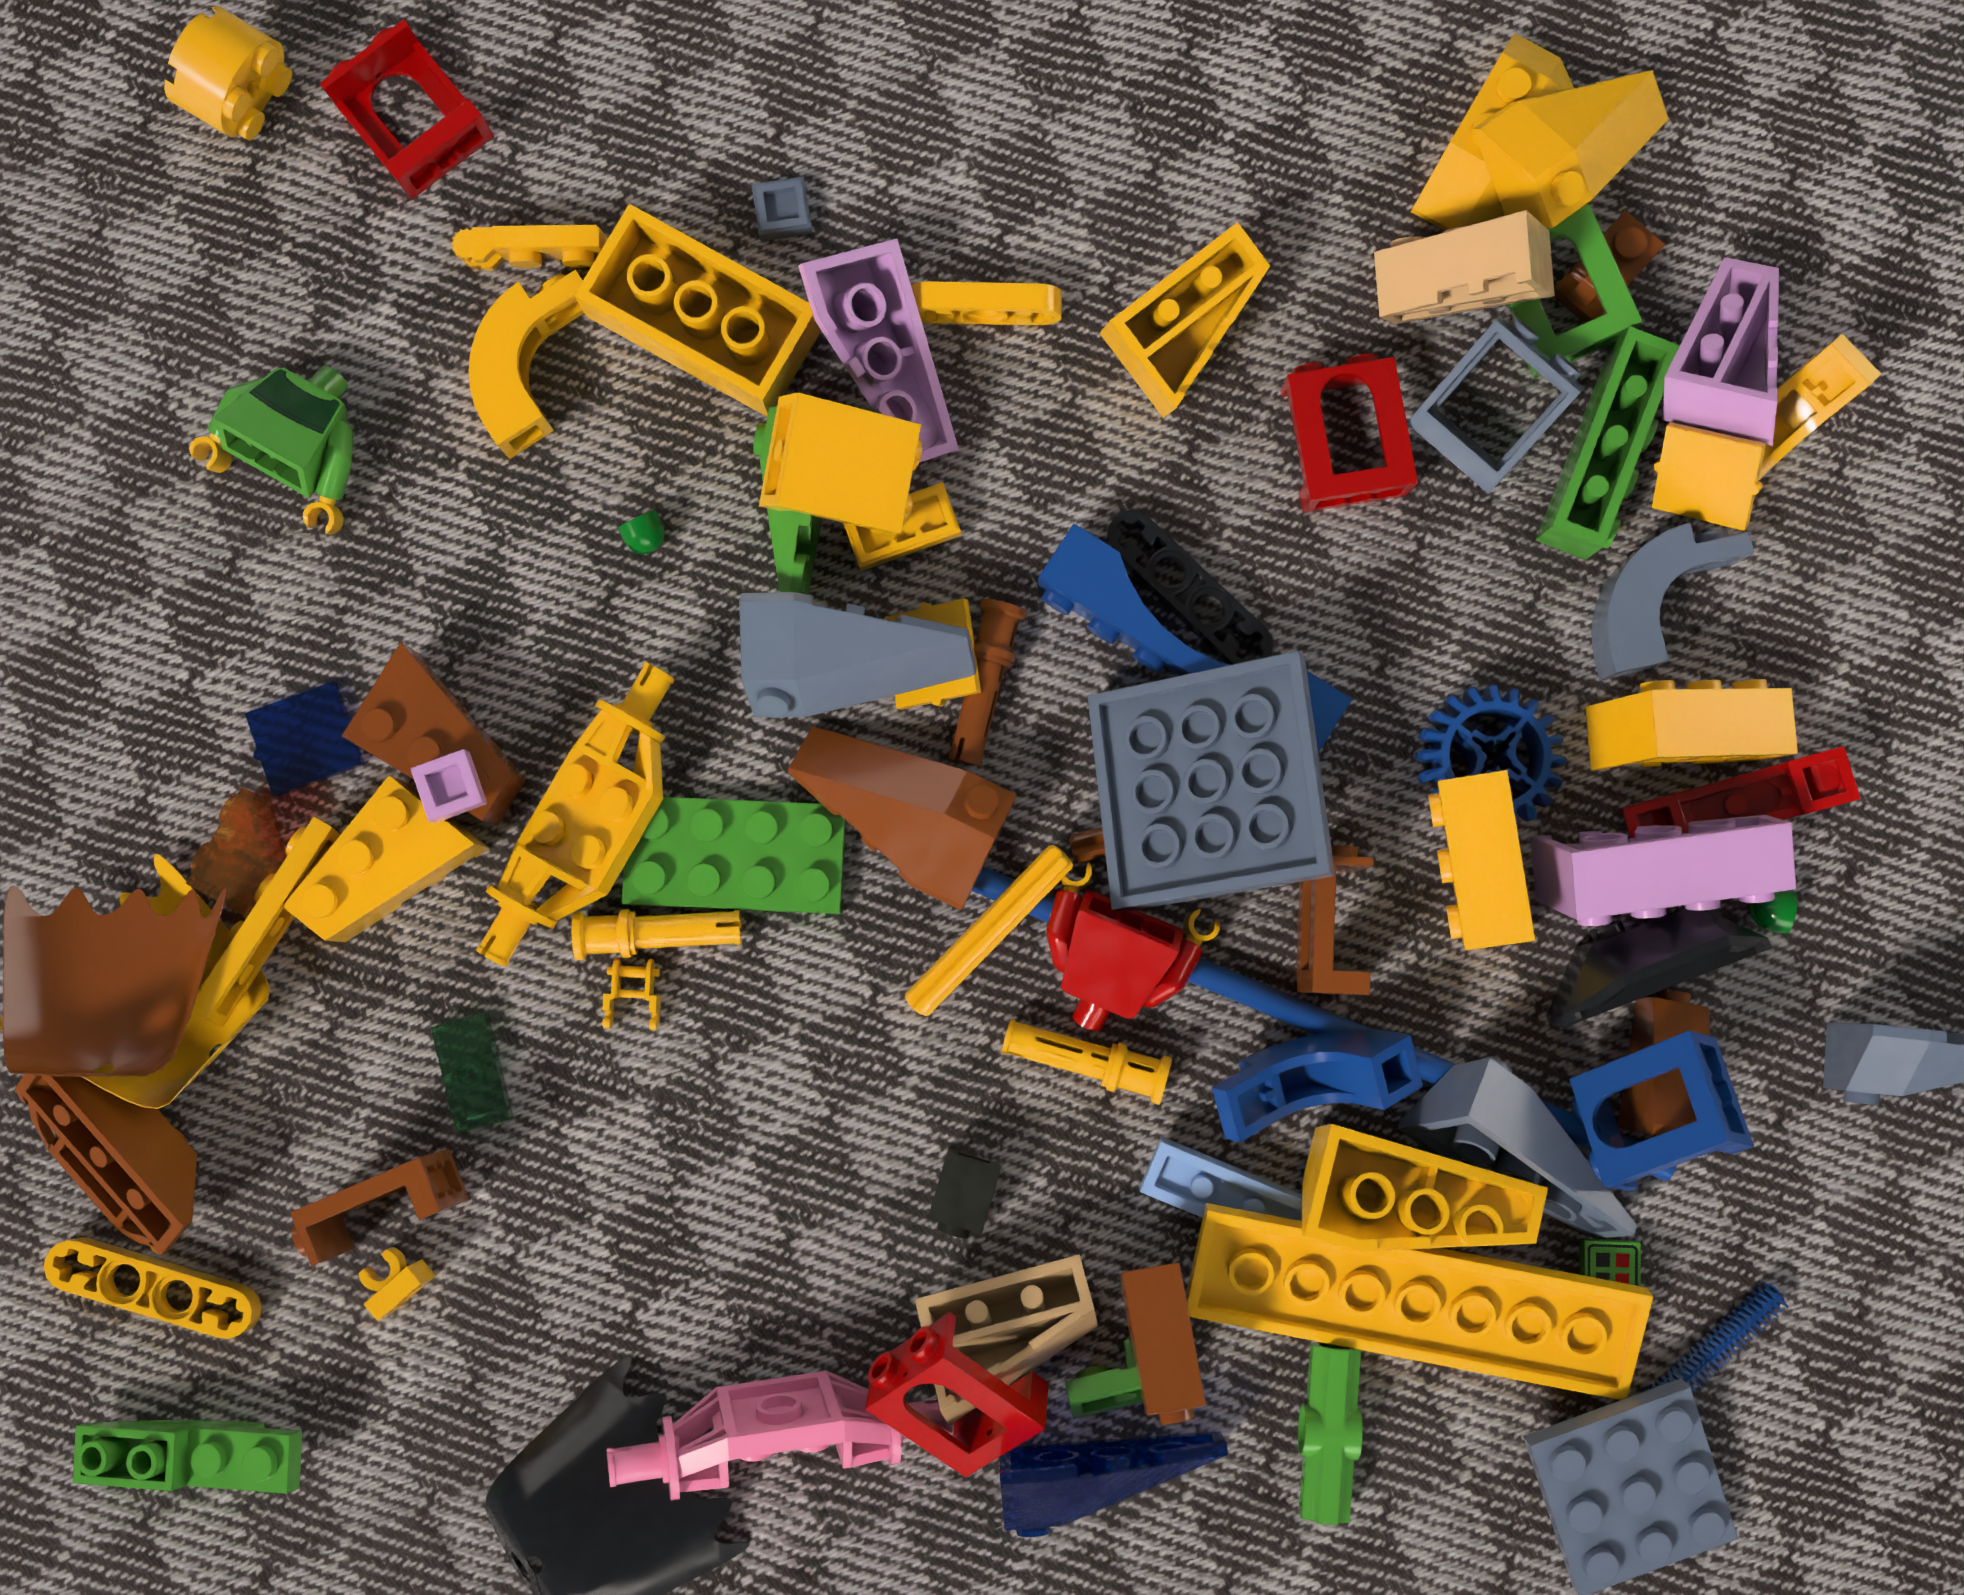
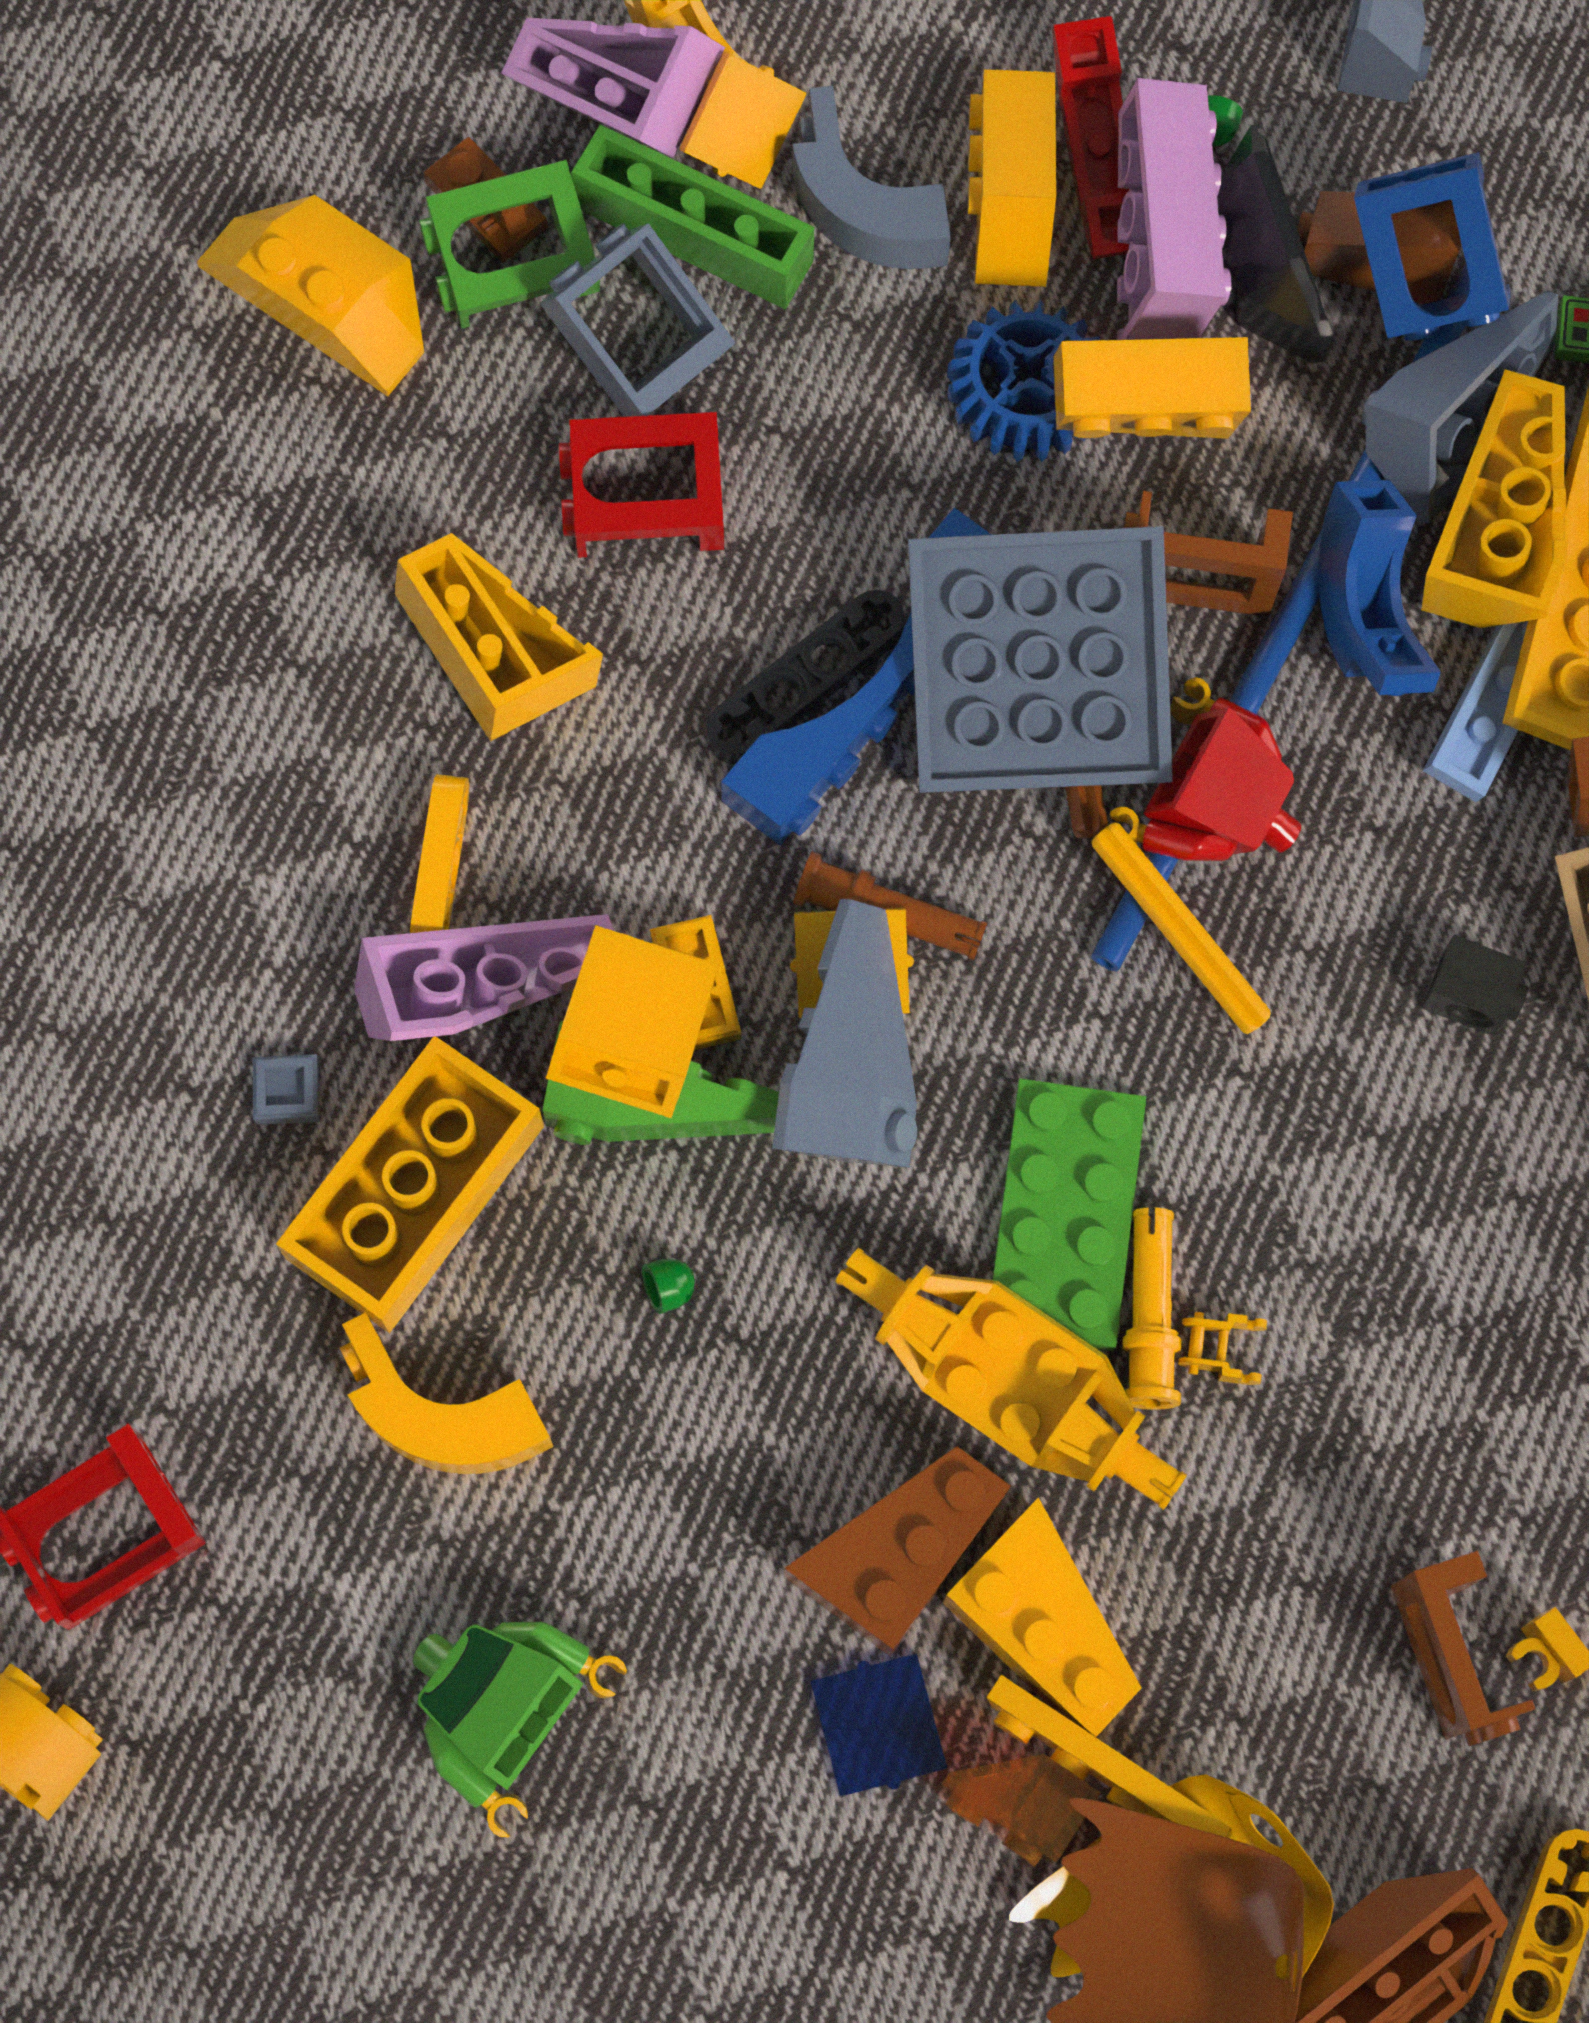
camera: 90 degrees left, 10 degrees down
(448, 786) = (973, 1506): lavender plate -> none
(472, 1072) = (1303, 1545): clear green plate -> none
(528, 245) = (296, 1390): yellow hinge -> none
(914, 810) = (1041, 987): dark orange wedge -> none
(1113, 1065) = (1341, 813): yellow pin -> none
(1465, 269) = (483, 334): tan wedge -> none
(1569, 144) = (355, 214): yellow wedge -> none

